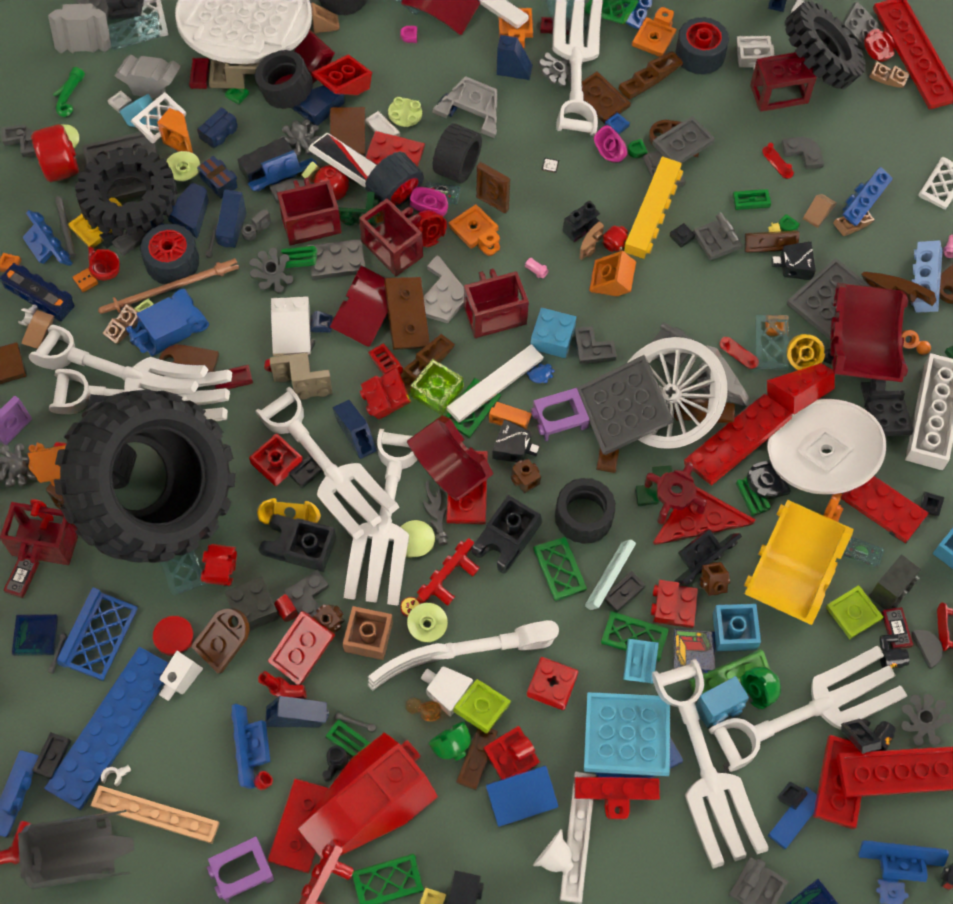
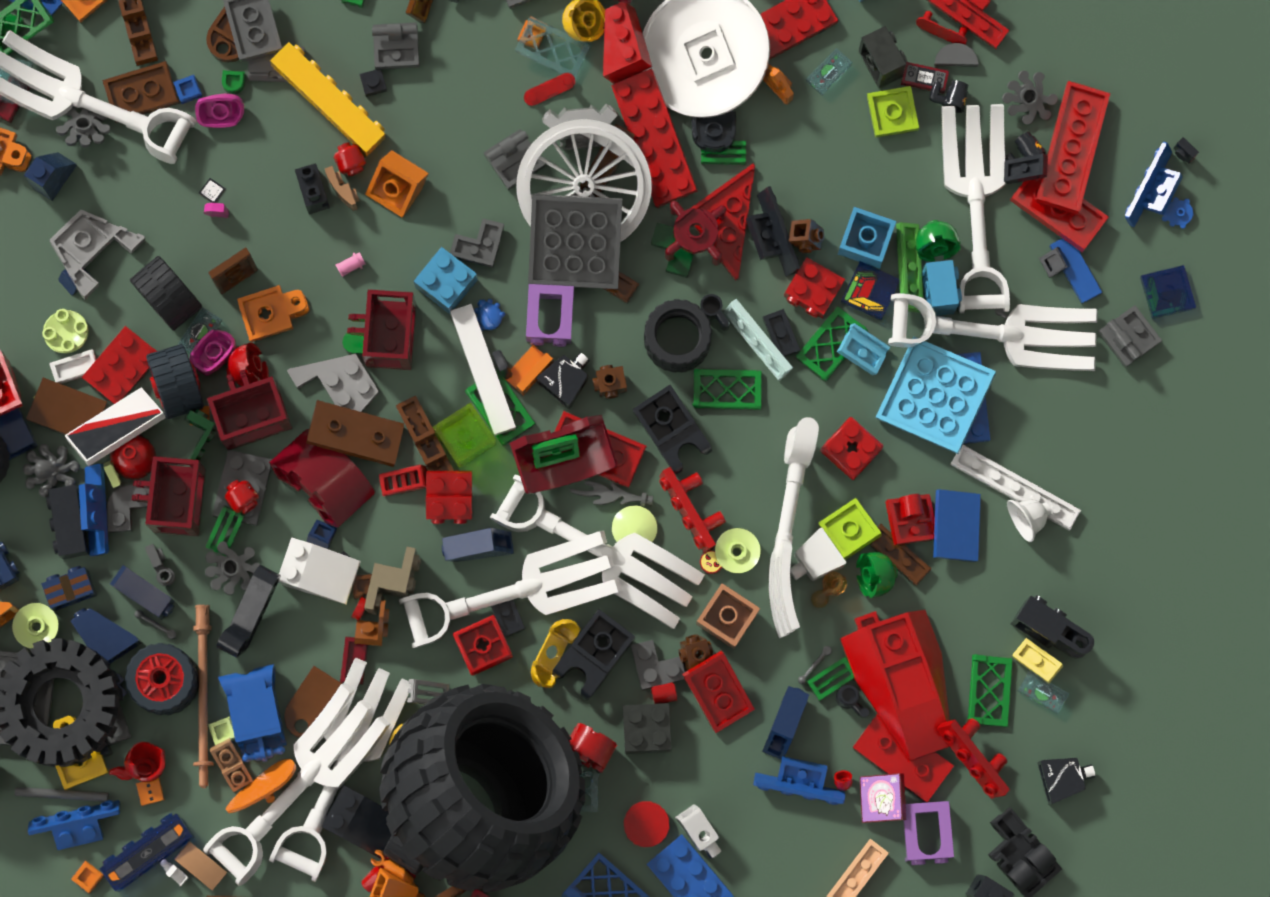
camera: 70 degrees left, 15 degrees up
(110, 347) = (263, 786): none -> orange shield
(218, 418) = (414, 691): none -> light grey tile
(221, 639) = (676, 773): reddish brown tile -> none
(238, 291) = (250, 612): none -> black beam
(257, 819) = (883, 798): none -> tile
(260, 378) = (373, 632): none -> dark orange bracket
(280, 687) = (752, 727): red arm -> none
(326, 254) = (241, 496): none -> red head
(452, 448) = (555, 447): none -> green tile
(505, 394) = (502, 364): none -> black tile
(536, 170) = (216, 210): none -> dark pink tile
(616, 792) = (990, 431): red plate -> none
(619, 529) = (712, 306): none -> black piece
(798, 561) = (821, 143): yellow panel -> none

